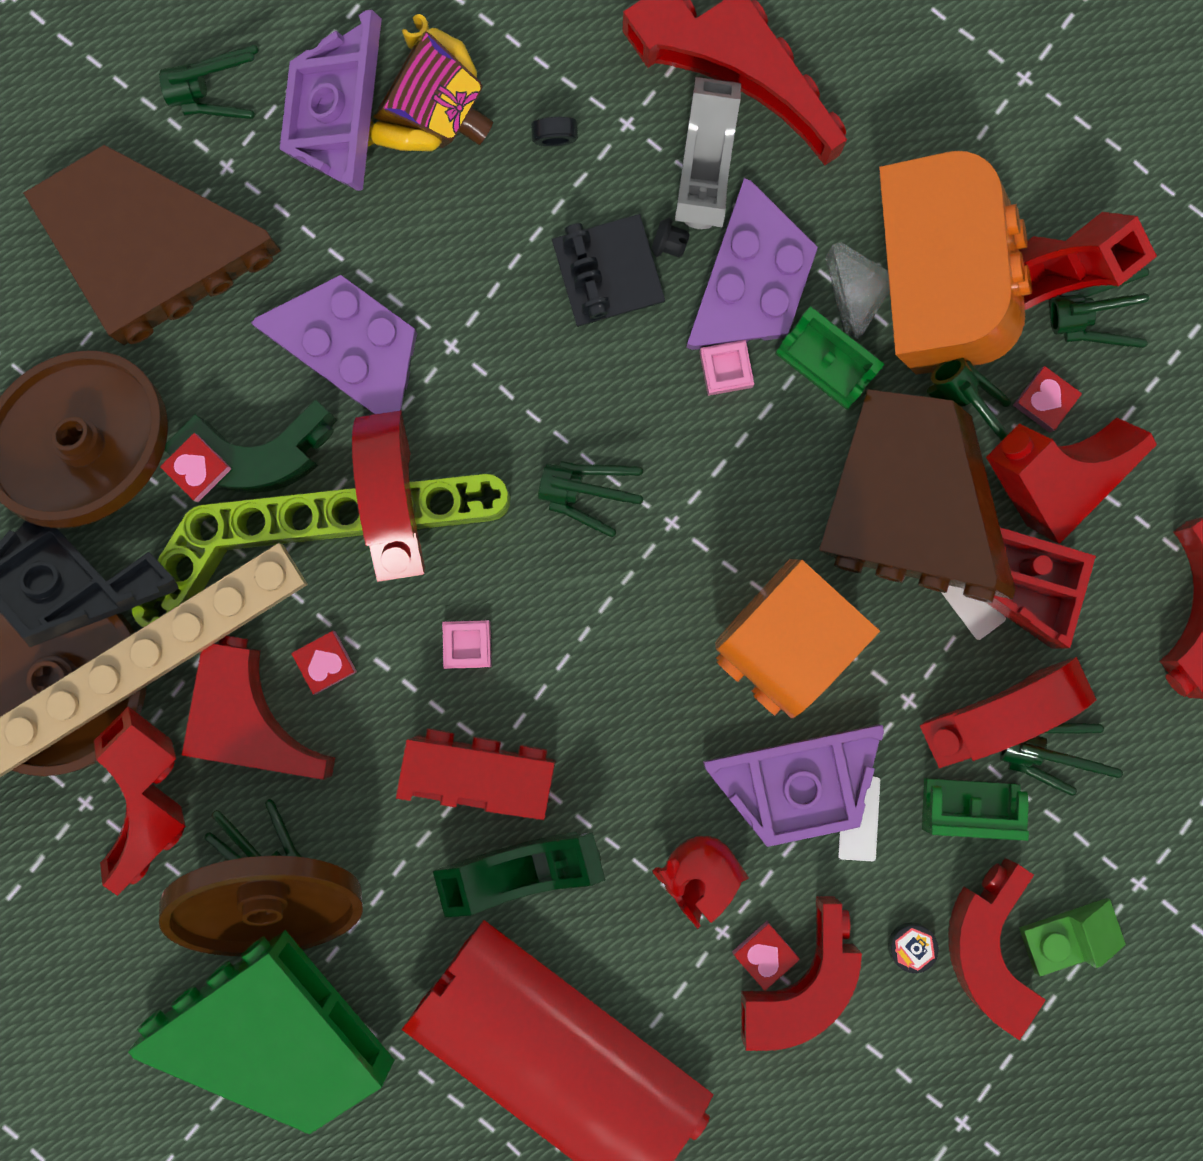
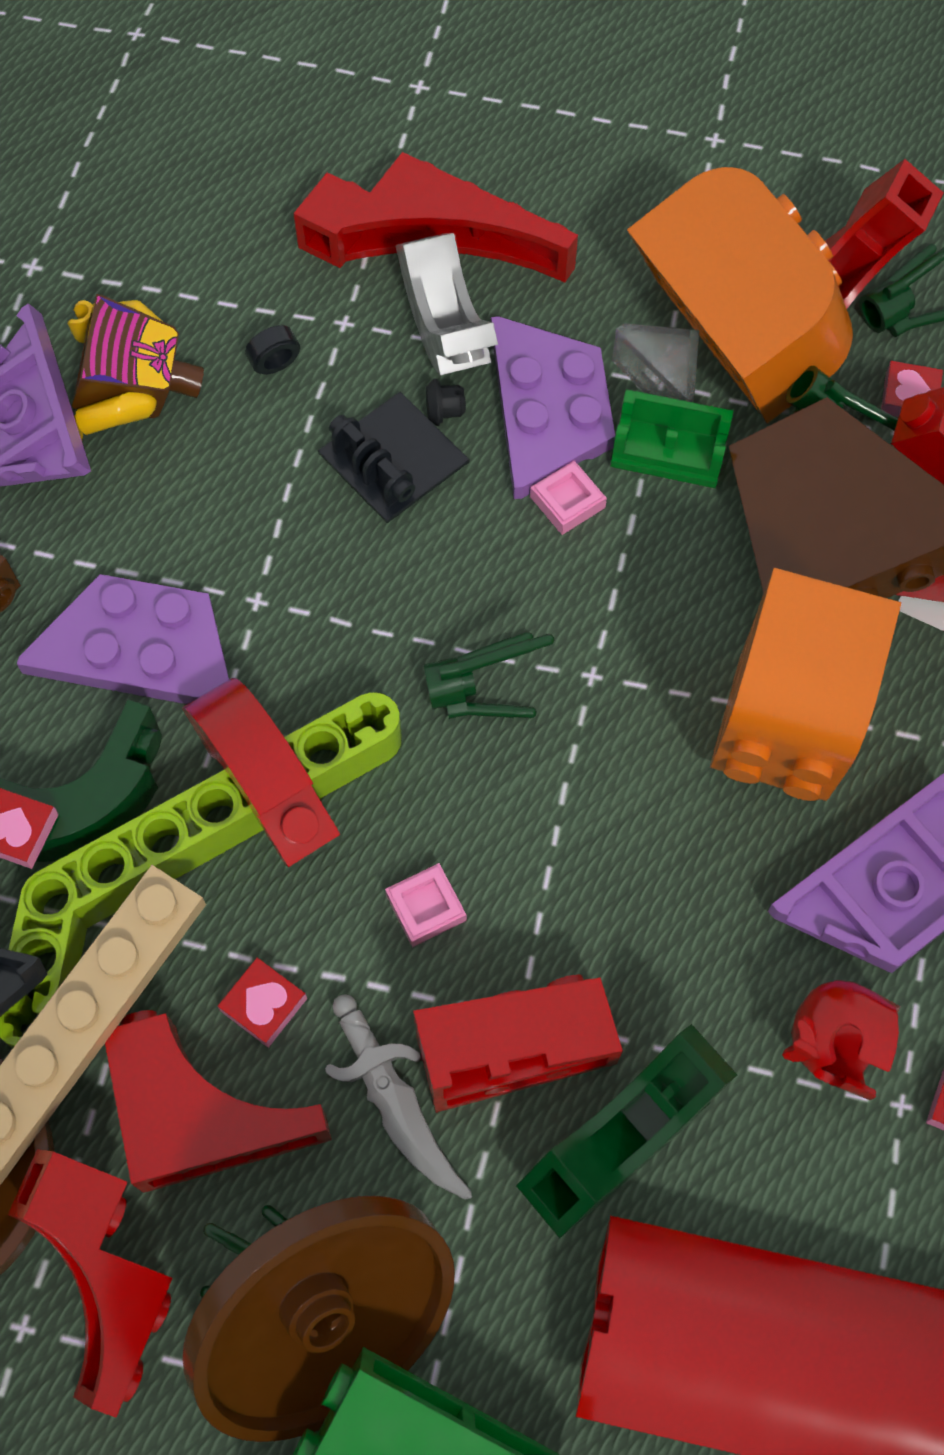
camera: 25 degrees left, 20 degrees down
(383, 768) = (393, 1096): none -> light grey piece

